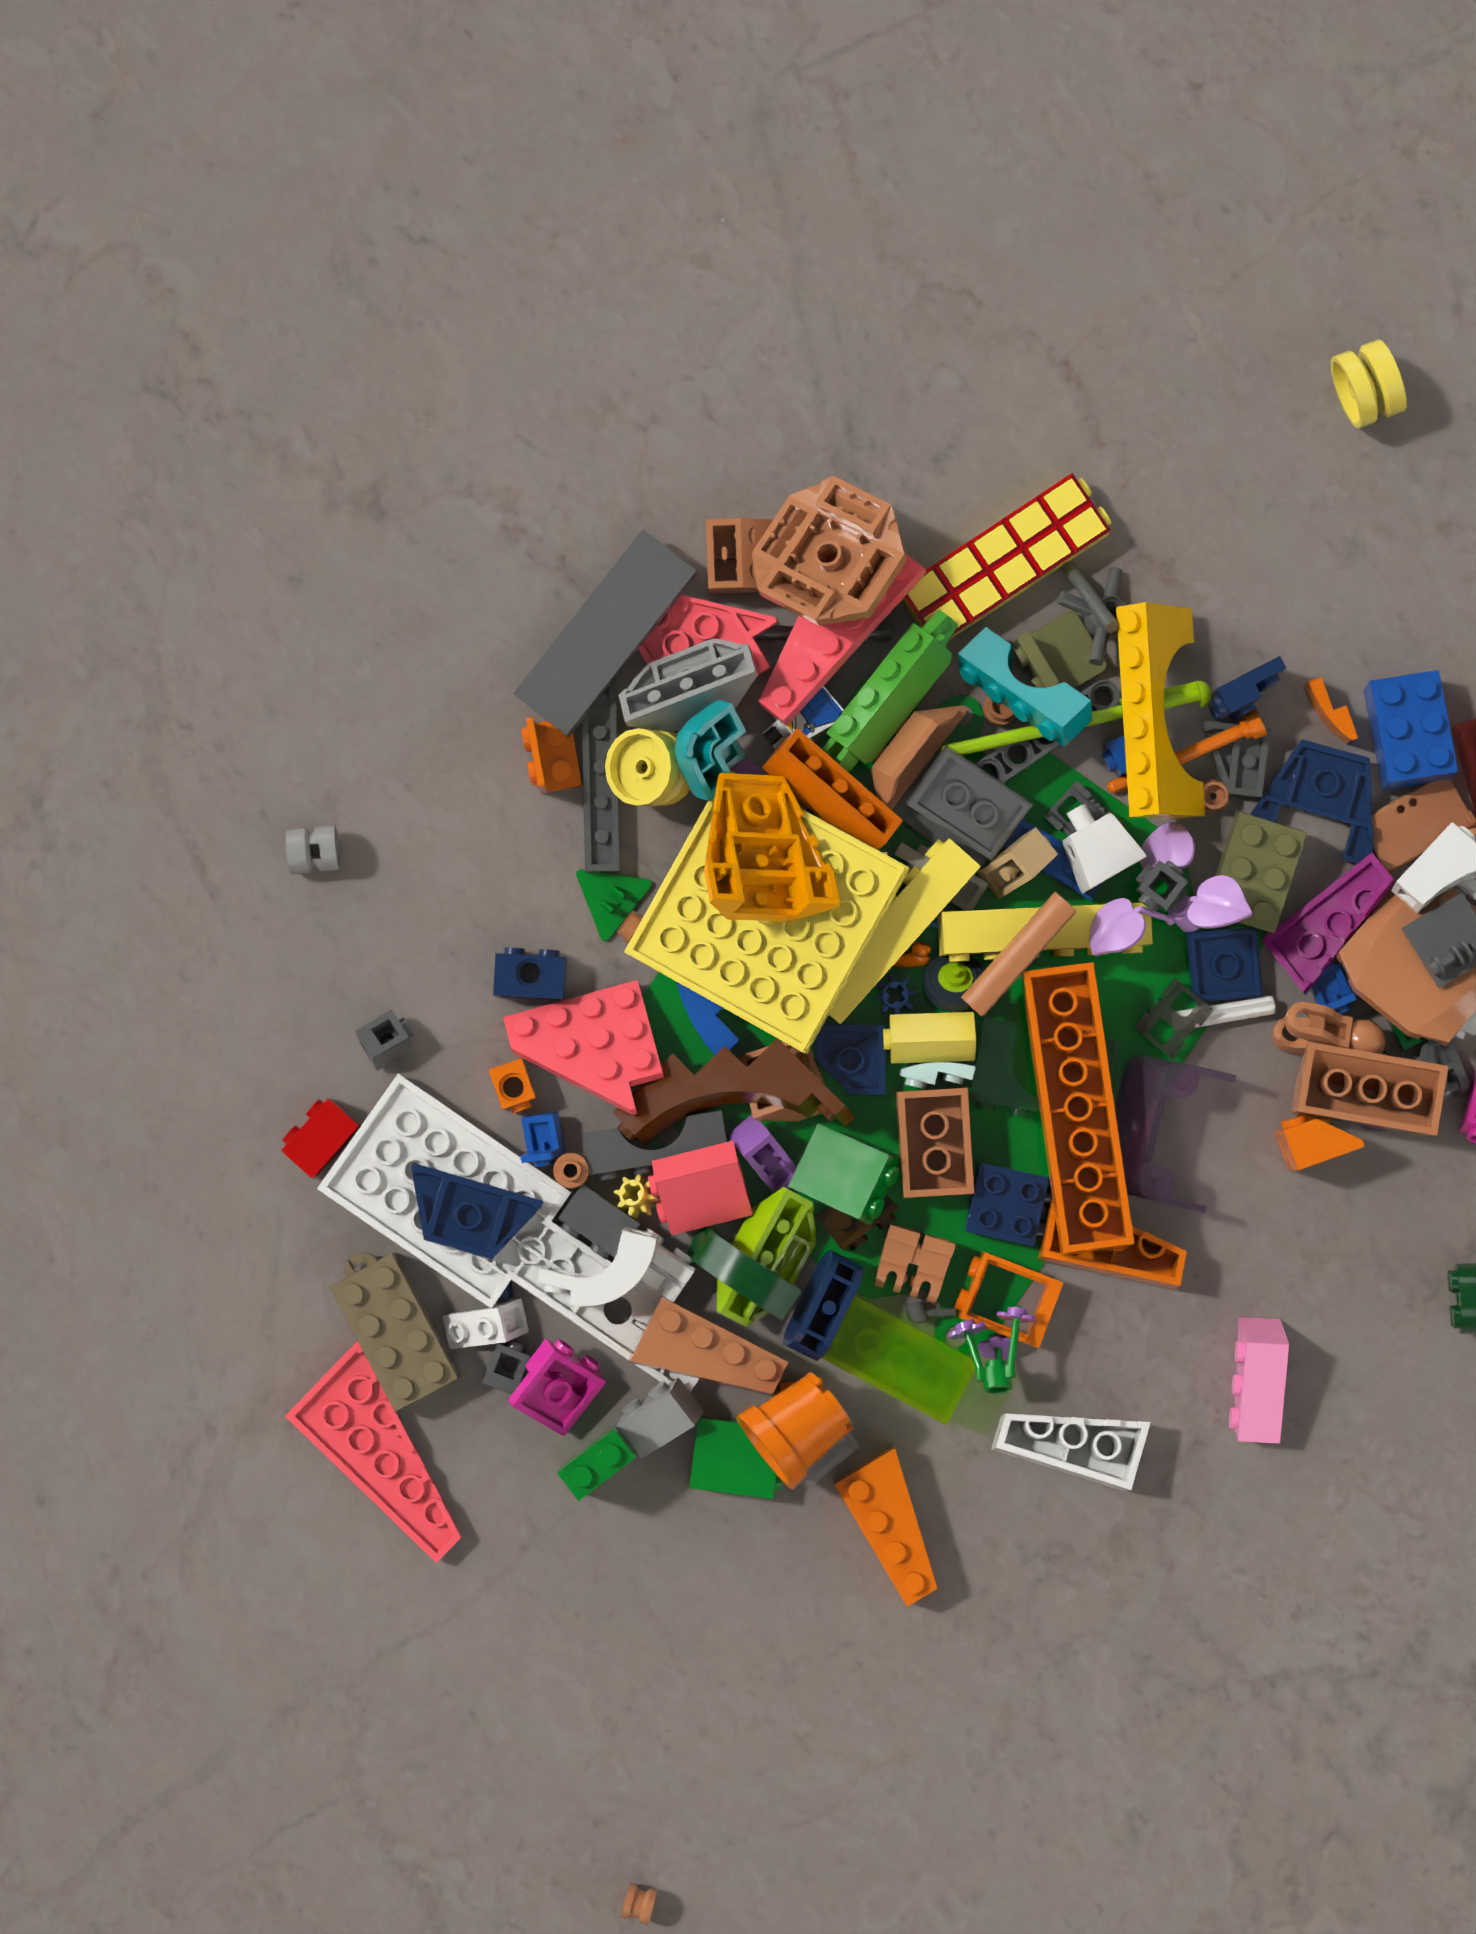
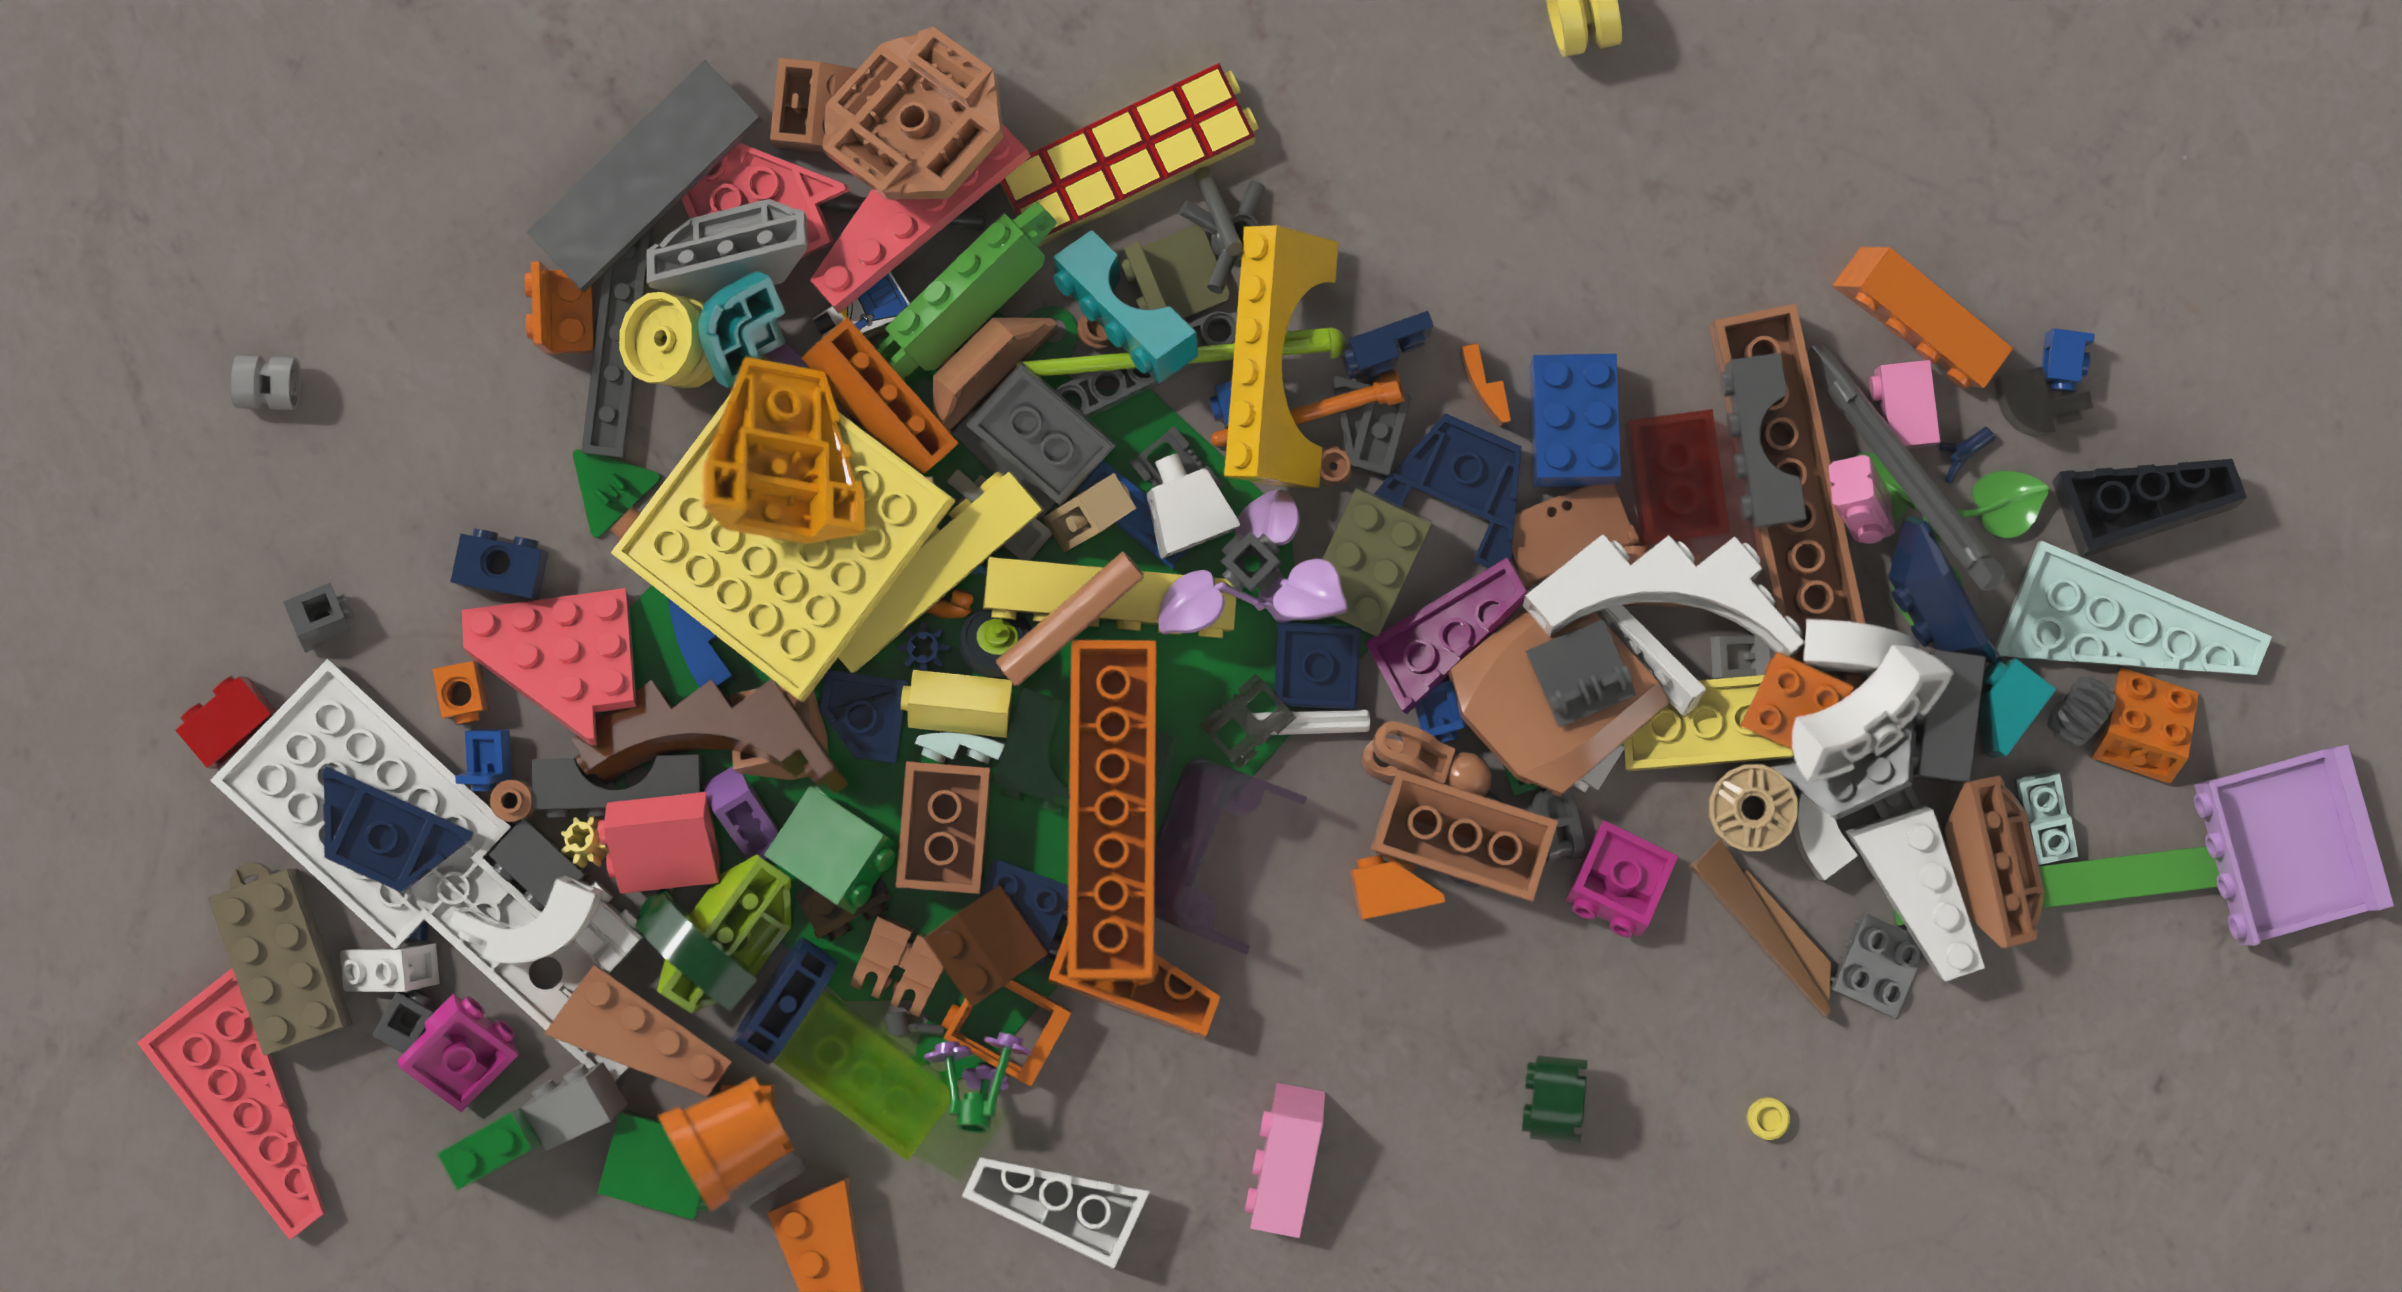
camera: 10 degrees right, 0 degrees up
(987, 1236) = (986, 945): none -> reddish brown slope

